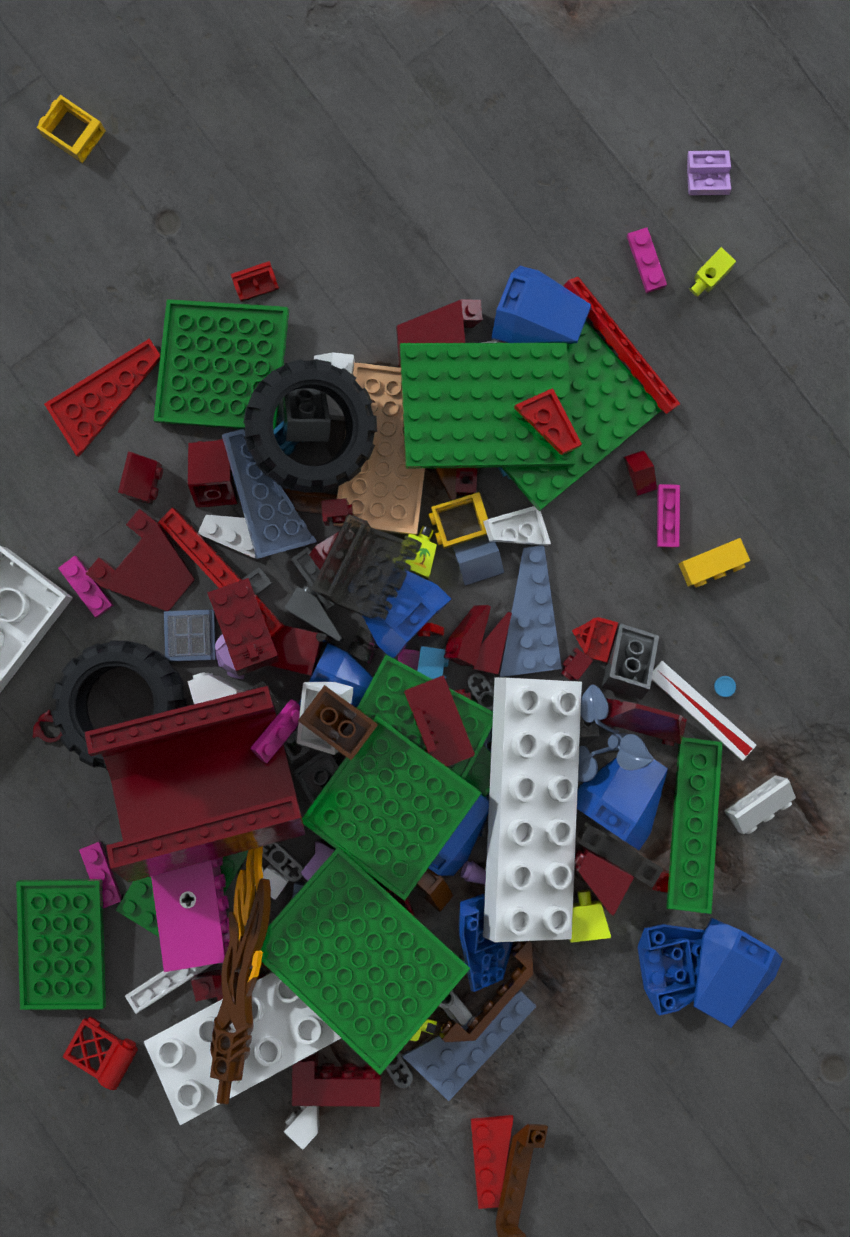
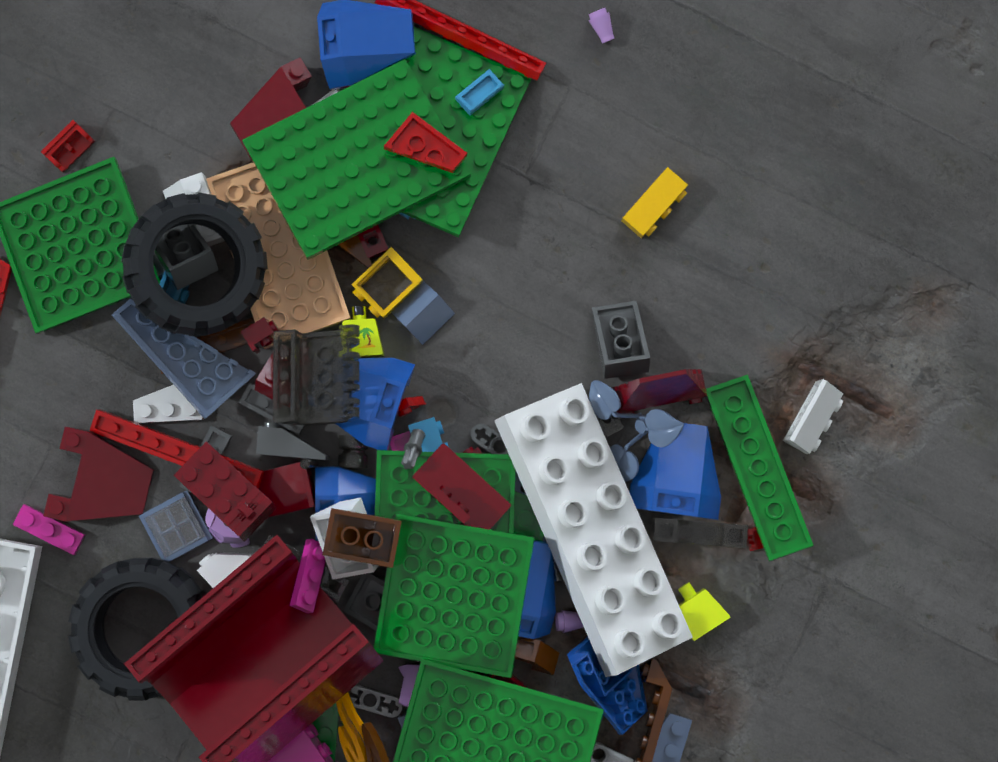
camera: 25 degrees left, 0 degrees up
(37, 732) = (71, 694): dark red piece -> none
(140, 478) = (51, 396): dark red slope -> none
(210, 474) = (118, 358): dark red slope -> none
(277, 880) = (381, 724): white brick -> none
(416, 668) = (413, 448): none -> dark grey axle
(466, 639) = (449, 396): dark red slope -> none
(493, 646) = (478, 396): dark red slope -> none
(518, 527) = (446, 262): white wing -> none
(532, 629) = (509, 355): sand blue wing -> none
(576, 665) = (568, 369): dark red brick -> none
(596, 638) = (576, 333): red slope -> none
(603, 877) = (694, 562): dark red slope -> none
(614, 400) = (479, 92): none -> dark azure tile
(641, 472) = (541, 149): dark red slope -> none
(668, 516) = (588, 179): dark pink plate -> none
(669, 965) = (811, 609): blue wedge -> none
(702, 711) = (713, 353): white tile -> none
(724, 686) = (724, 318): dark azure piece -> none
(732, 972) = (863, 591): blue wedge -> none
(741, 394) = (601, 23): none -> lavender cone

